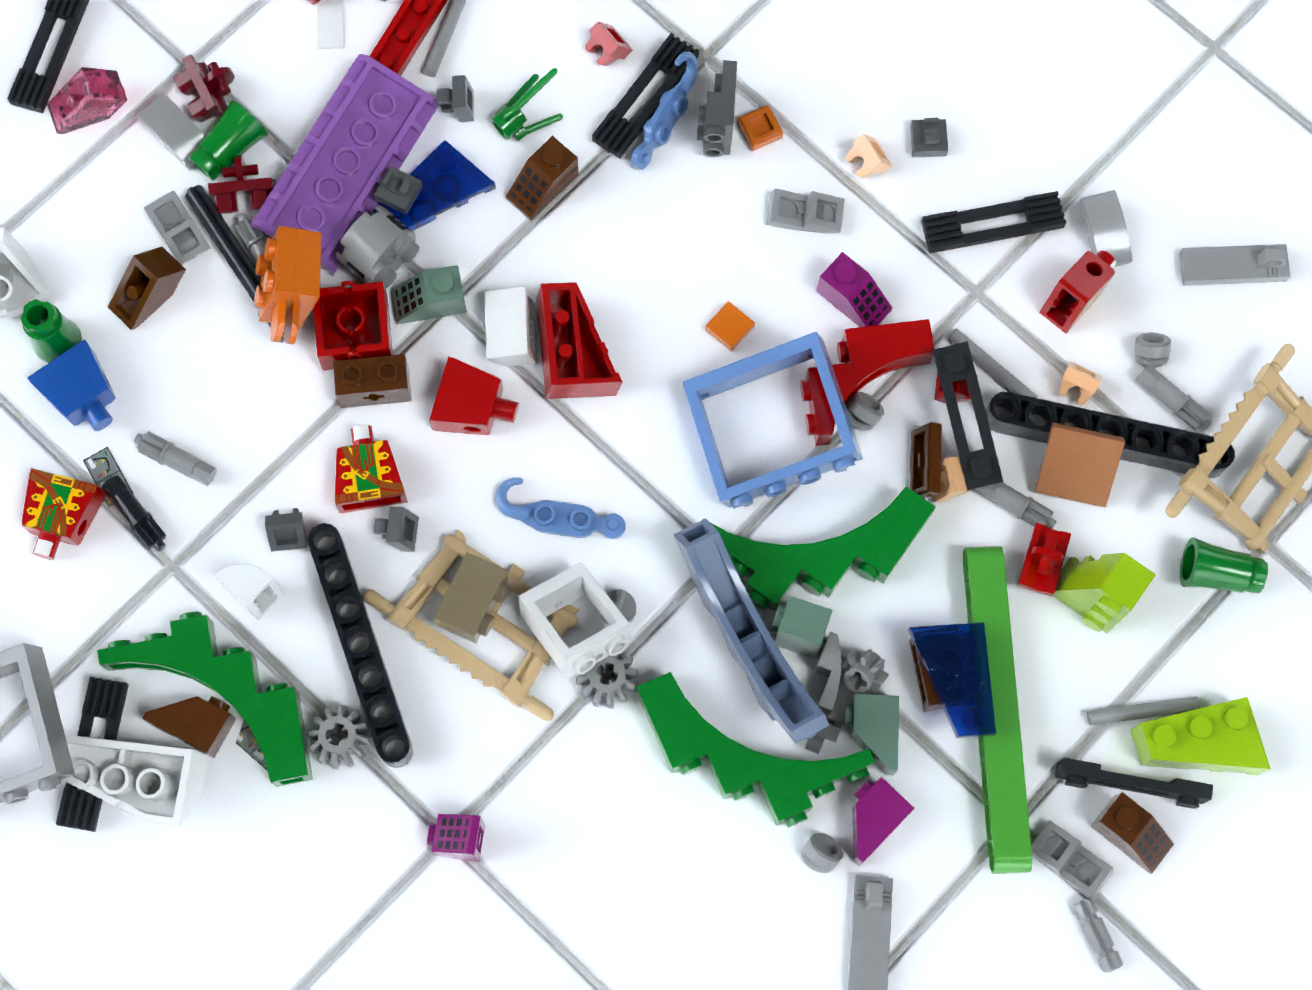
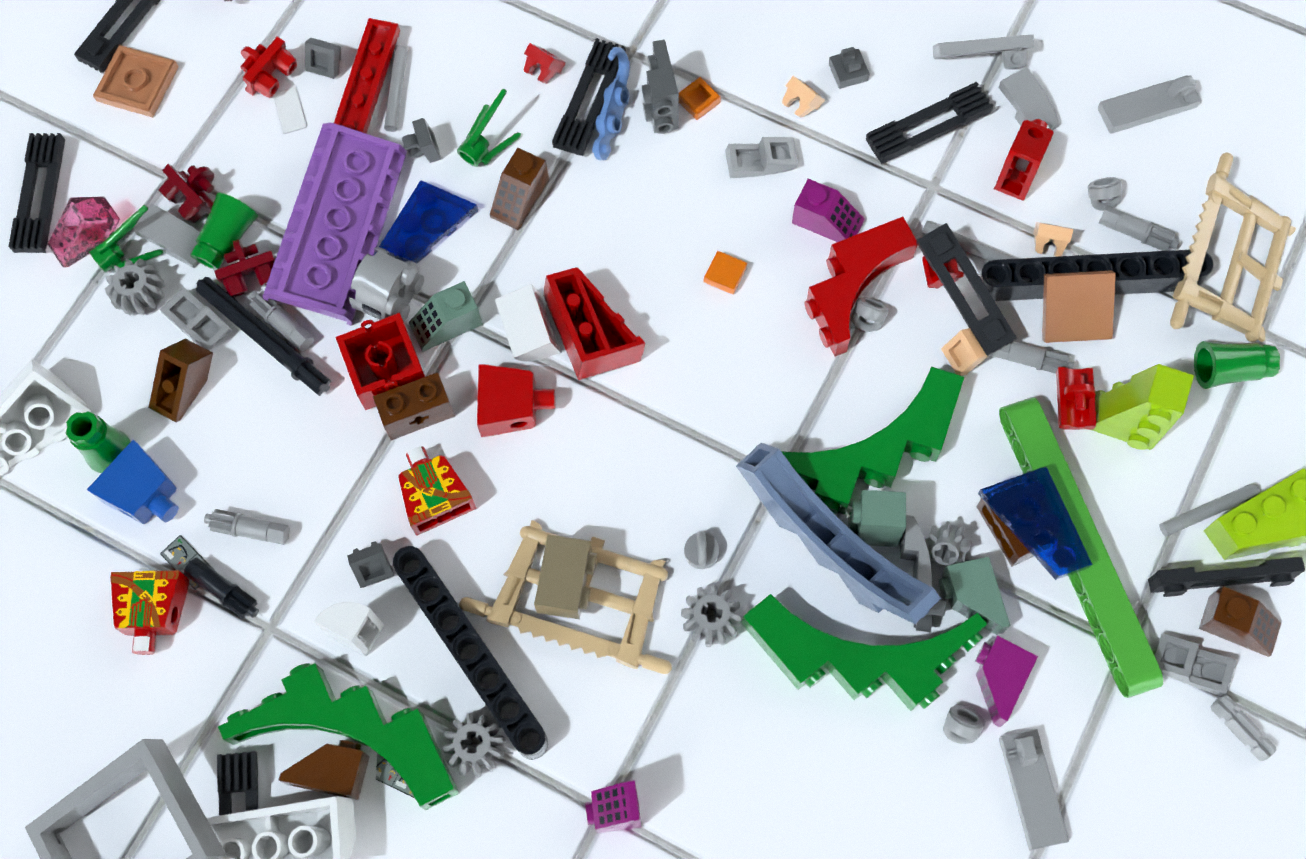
camera: 10 degrees left, 5 degrees down
(107, 132) = (110, 253): none -> green plant
(124, 176) = (134, 287): none -> light grey gear
(288, 281) = (311, 333): orange brick -> none
(398, 190) = (391, 232): dark grey tile -> none
(399, 529) = (476, 533): dark grey tile -> none
(556, 594) = (646, 548): white window -> none
(559, 517) = (622, 482): medium blue piece -> none
(754, 368) = (762, 299): medium blue window -> none
(926, 460) = (940, 339): reddish brown tile -> none
(1109, 163) = (1012, 49): none -> light grey hinge

